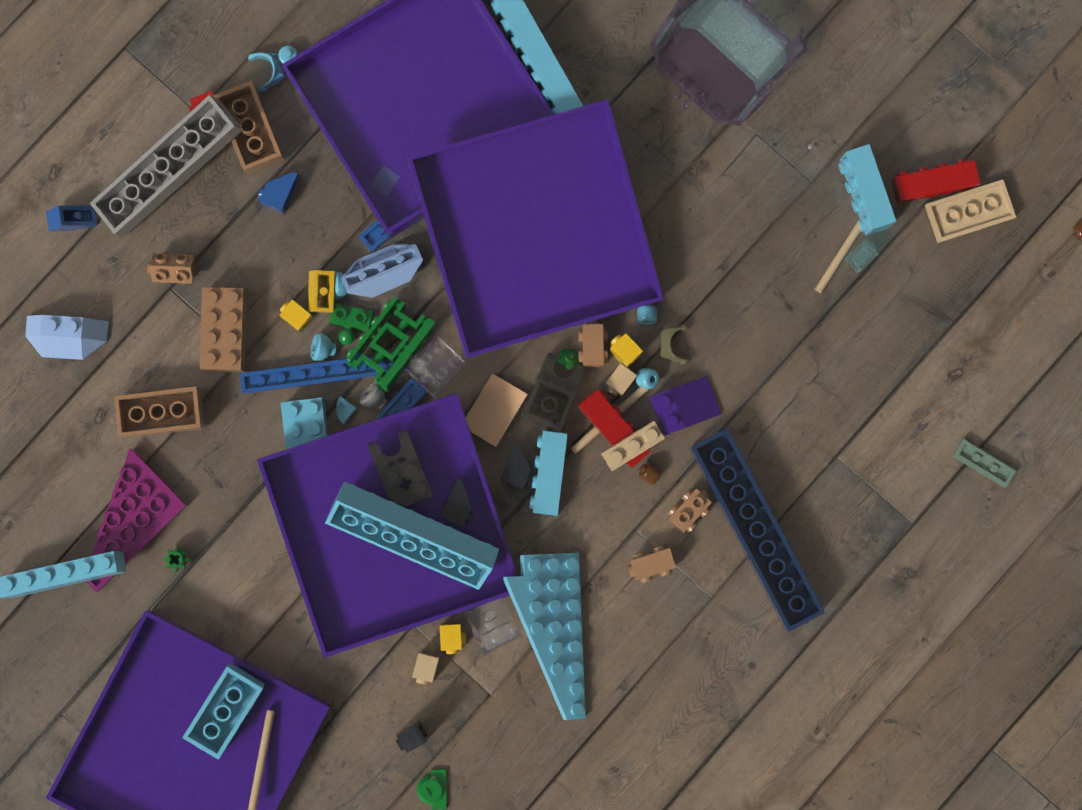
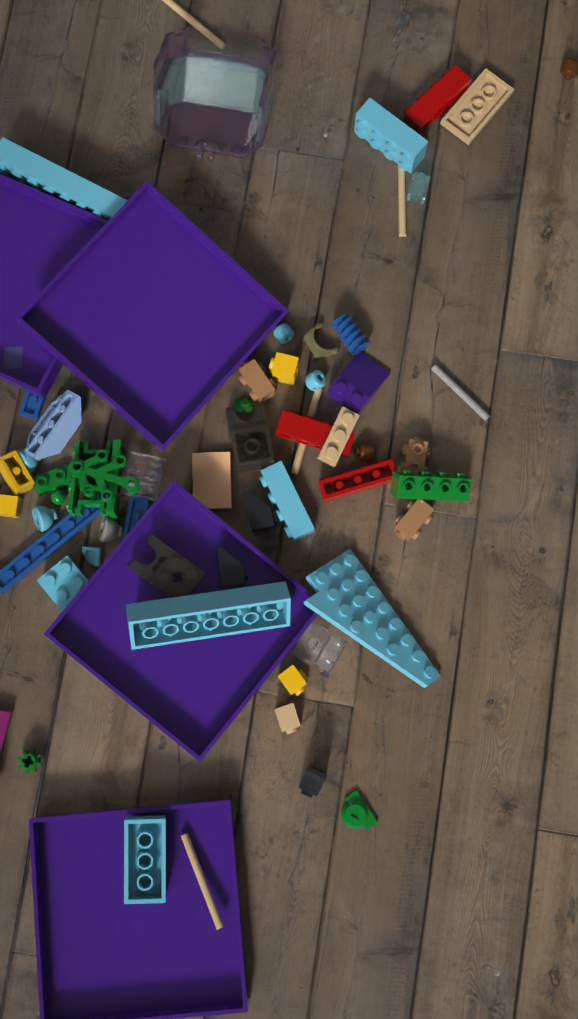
camera: 30 degrees left, 5 degrees down
(396, 344) = (101, 475): none -> green plant
(620, 380) = (295, 395): tan brick -> none
(624, 496) = (356, 481): none -> red brick
(687, 544) = (431, 485): none -> green brick
(707, 355) = (350, 334): none -> blue piece
(757, 530) = (477, 441): dark blue brick -> none
(773, 473) = (460, 392): none -> light grey bar

